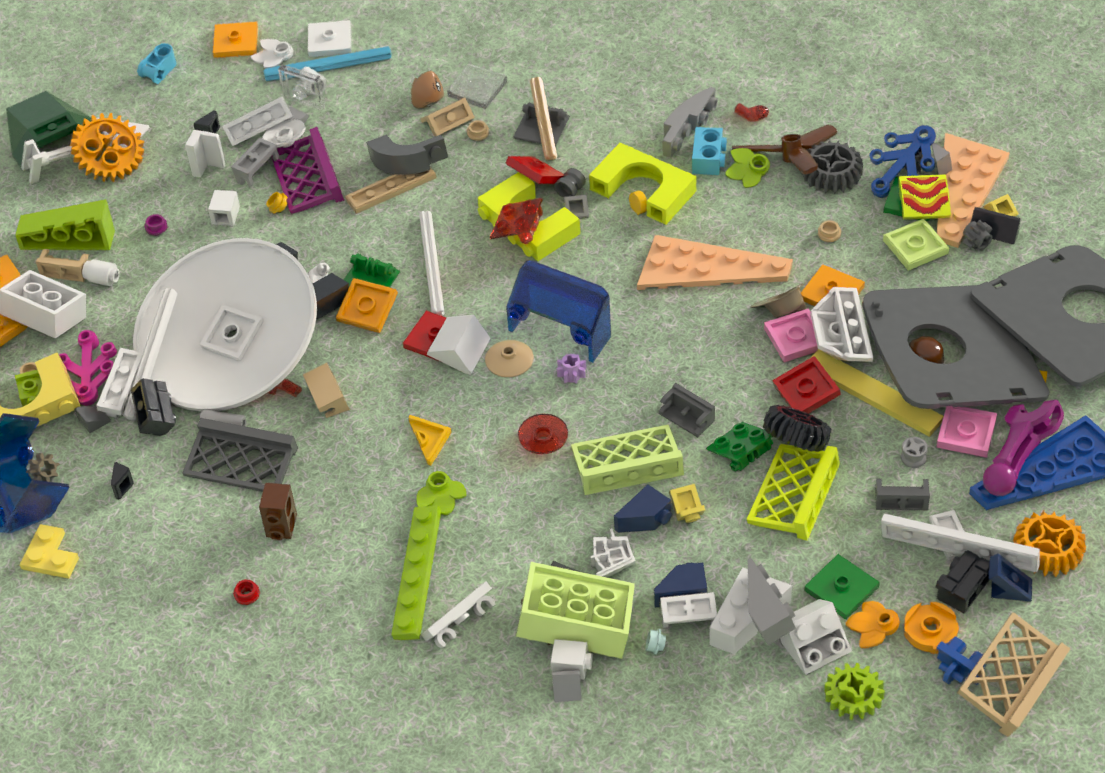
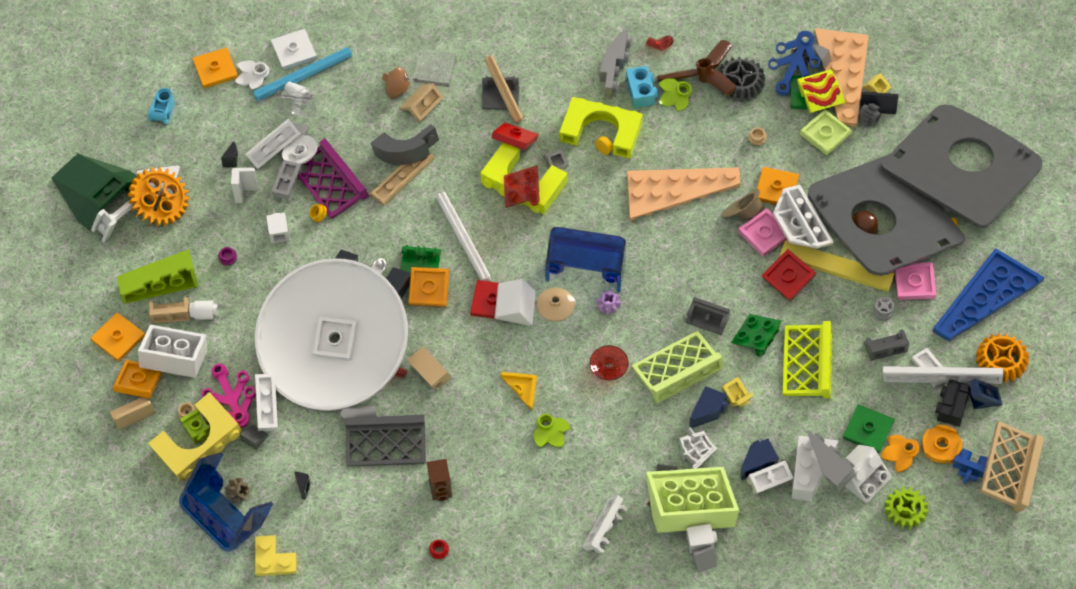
camera: 20 degrees left, 10 degrees up
(152, 346) = (280, 373): white axle -> none
(153, 407) = (302, 418): black brick -> none
(416, 573) = (559, 499): lime plate -> none
(477, 130) = (451, 109): tan plate -> none
(570, 183) = (544, 141): dark grey wheel -> none
(655, 641) = (753, 507): light aqua plate -> none
(797, 428) = (797, 313): black gear -> none
(1024, 436) = (960, 275): magenta piece -> none

